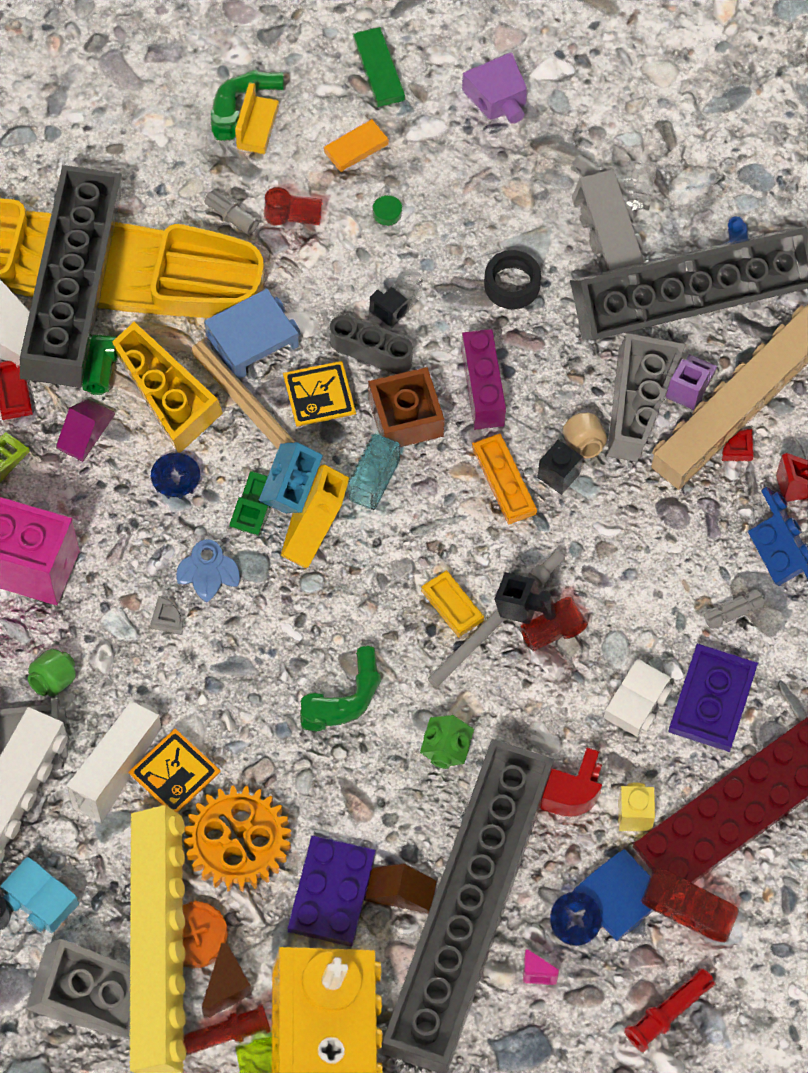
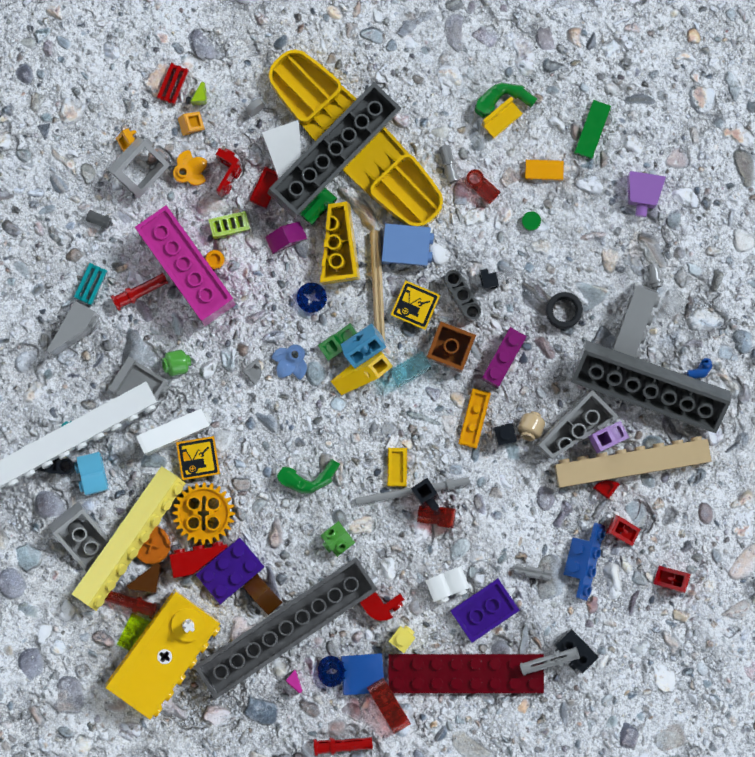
camera: 35 degrees right, 20 degrees up
(268, 913) = (191, 562): none -> red slope

